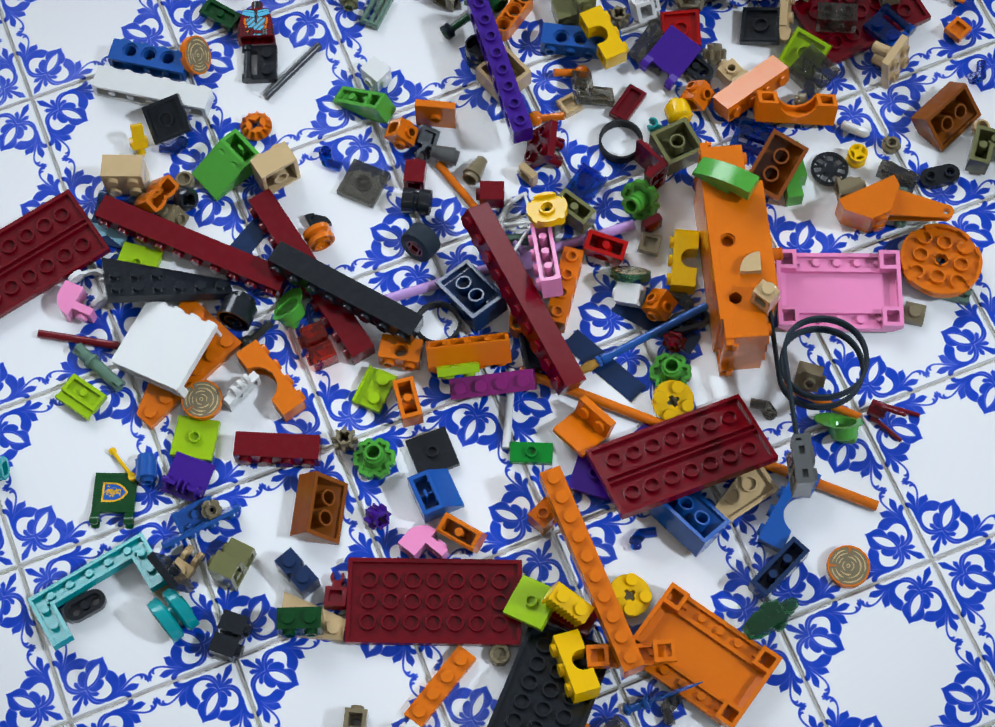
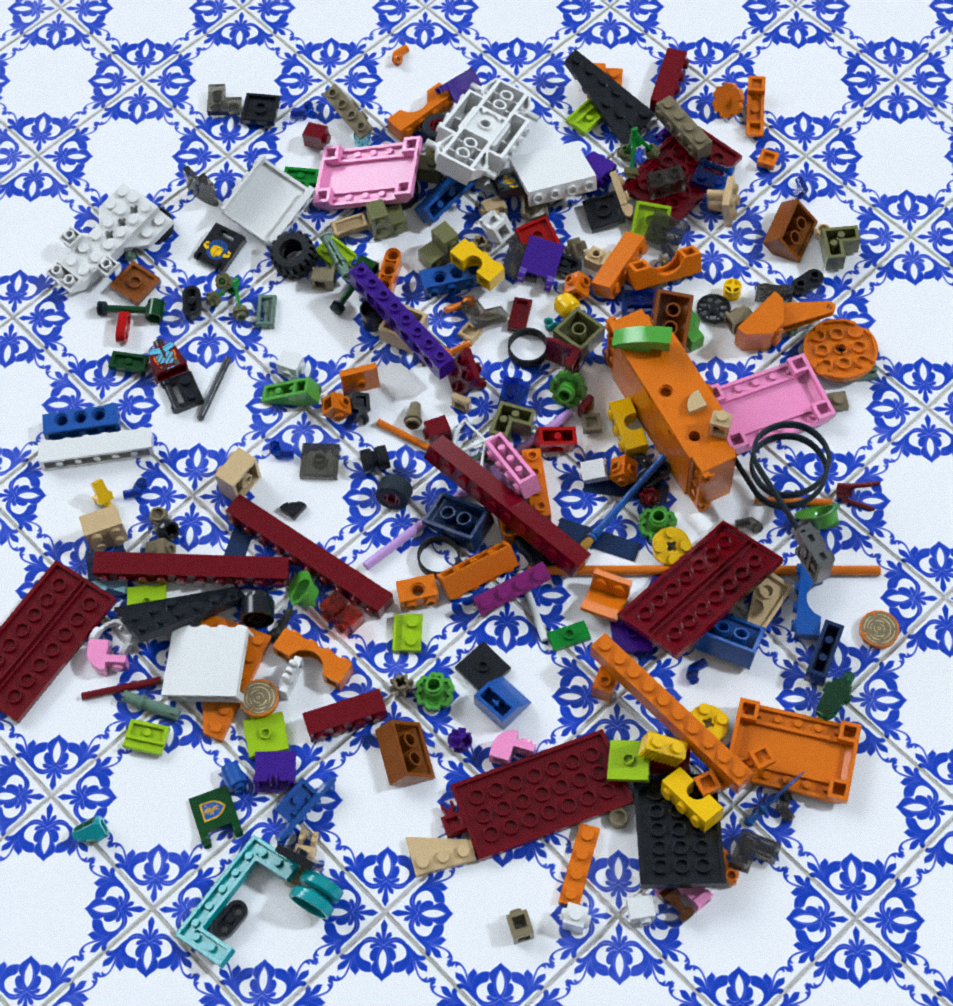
camera: 20 degrees left, 5 degrees down
(131, 475) = (223, 789): yellow hinge -> none
(157, 194) = (140, 534): orange brick -> none
(167, 119) = (120, 467): black plate -> none
(195, 55) = (123, 403): tile -> none
(211, 504) = (305, 789): dark tan plate -> none
(226, 165) = (191, 488): bright green slope -> none
(229, 641) = (374, 894): black piece -> none
(231, 563) = (348, 830): olive brick -> none
(256, 133) = (207, 451): orange gear -> none
(300, 621) = (433, 855): dark green brick -> none
(302, 577) = (418, 818): dark blue piece -> none
(319, 236) = (302, 519): orange wheel -> none
(345, 292) = (348, 557): black brick -> none
(408, 401) = (443, 631): orange brick -> none
(415, 173) = (362, 436): dark red brick -> none
(445, 154) = (382, 411): dark grey cone -> none
(450, 371) = (483, 584): lime plate -> none
(461, 532) = (540, 725): orange brick -> none
(557, 210) = (495, 432): yellow plate -> none
(630, 273) = (587, 453): clear green tile -> none
(809, 376) = (780, 481): dark tan brick -> none
(861, 131) = (726, 268): white arm -> none
(890, 149) = (755, 275): dark tan plate -> none

